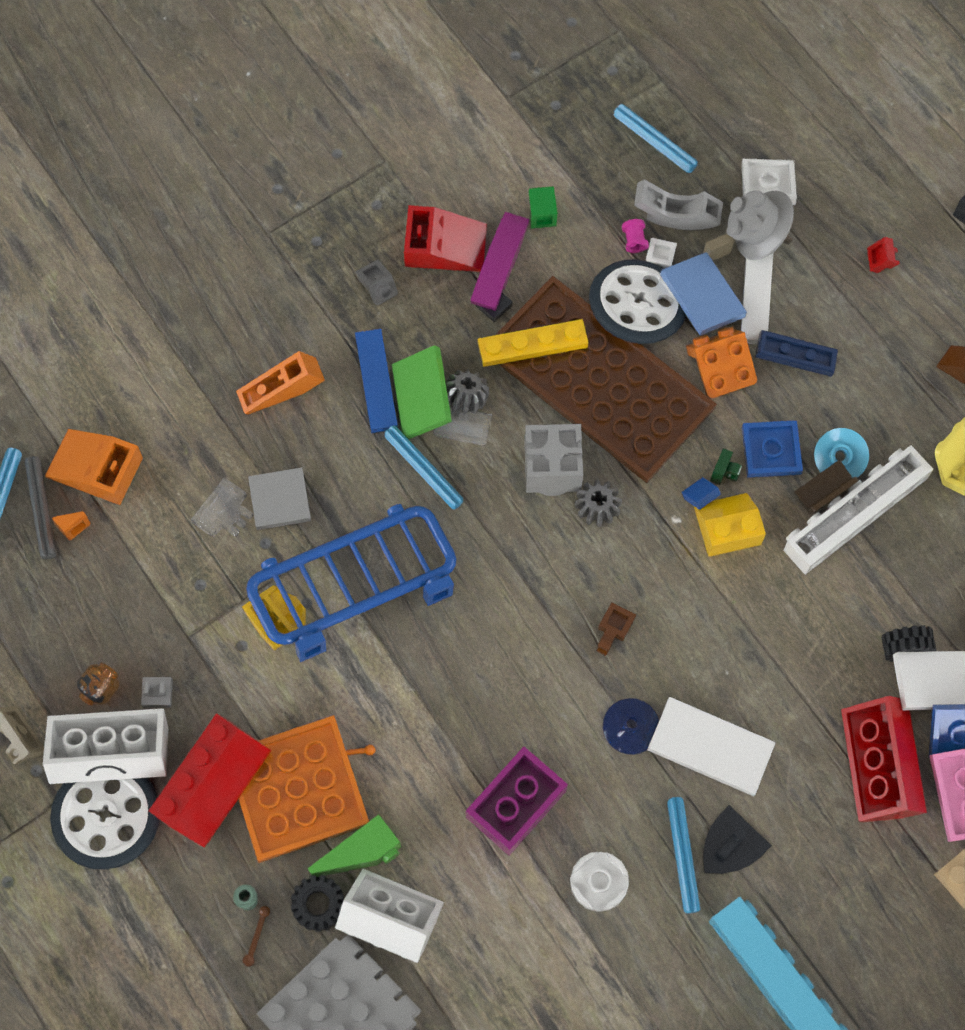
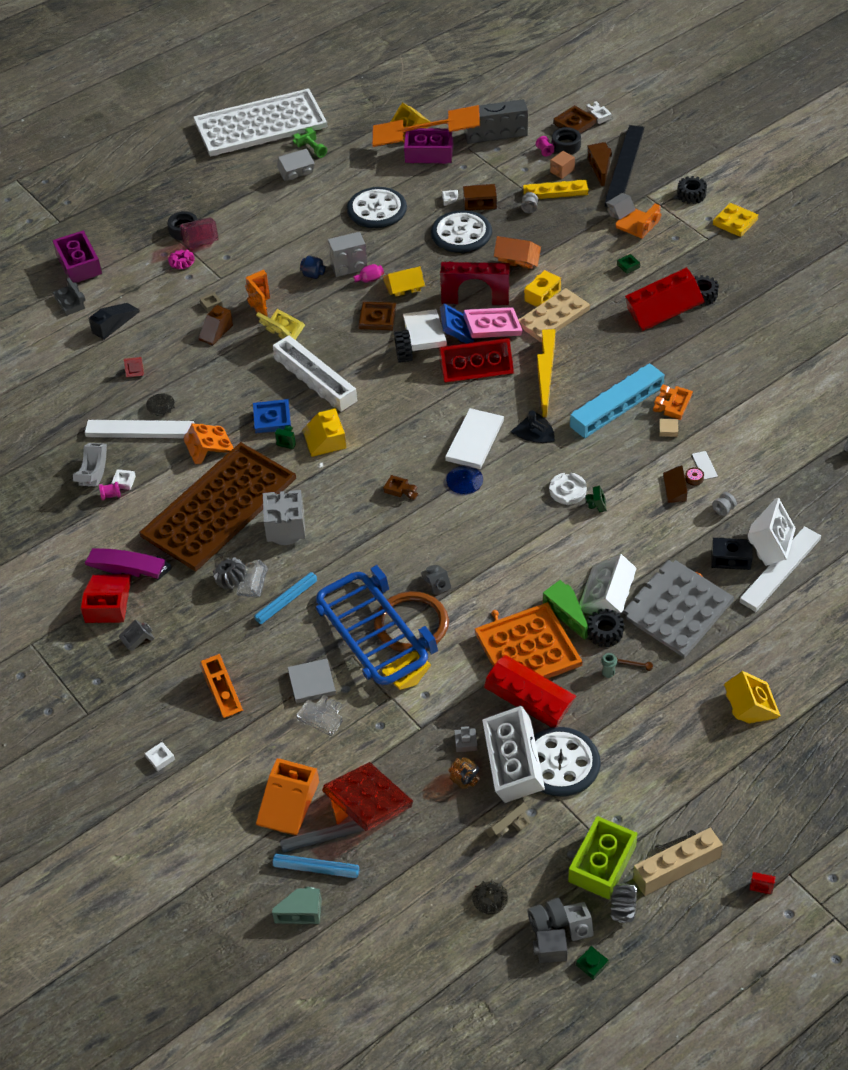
camera: 90 degrees left, 20 degrees down
(77, 559) = (367, 796): none -> clear red plate
(187, 317) = (160, 756): none -> white tile
(376, 380) = (216, 631): blue tile -> none
(397, 661) = (413, 596): none -> dark orange wedge
(421, 392) = (230, 597): bright green tile -> none
(435, 669) = (437, 578): none -> dark grey bracket
(516, 800) = (523, 524): magenta brick -> none
(532, 343) = (193, 537): yellow plate -> none
(542, 207) = (83, 537): green panel -> none
(565, 923) = (596, 499): none -> dark green tile
(589, 507) = (314, 499): flat silver gear -> none
(609, 314) = (161, 486): white wedge -> none
(655, 138) = (30, 486): dark azure axle -> none
(683, 855) = (546, 448): dark azure axle -> none
(701, 493) = (304, 448): blue tile -> none
(703, 293) = (158, 451): medium blue tile -> none
(719, 246) = (122, 446): dark tan tile -> none
(760, 222) = (110, 417): light grey piece -> none
(769, 176) = (72, 424): white tile -> none
(796, 353) = (203, 406): dark blue tile -> none
(803, 285) = (160, 399): none -> clear smoke gear
(825, 487) = (301, 386): dark brown panel -> none
(849, 443) = (277, 381): medium azure dish -> none
(860, 871) = (545, 366): none -> yellow slope

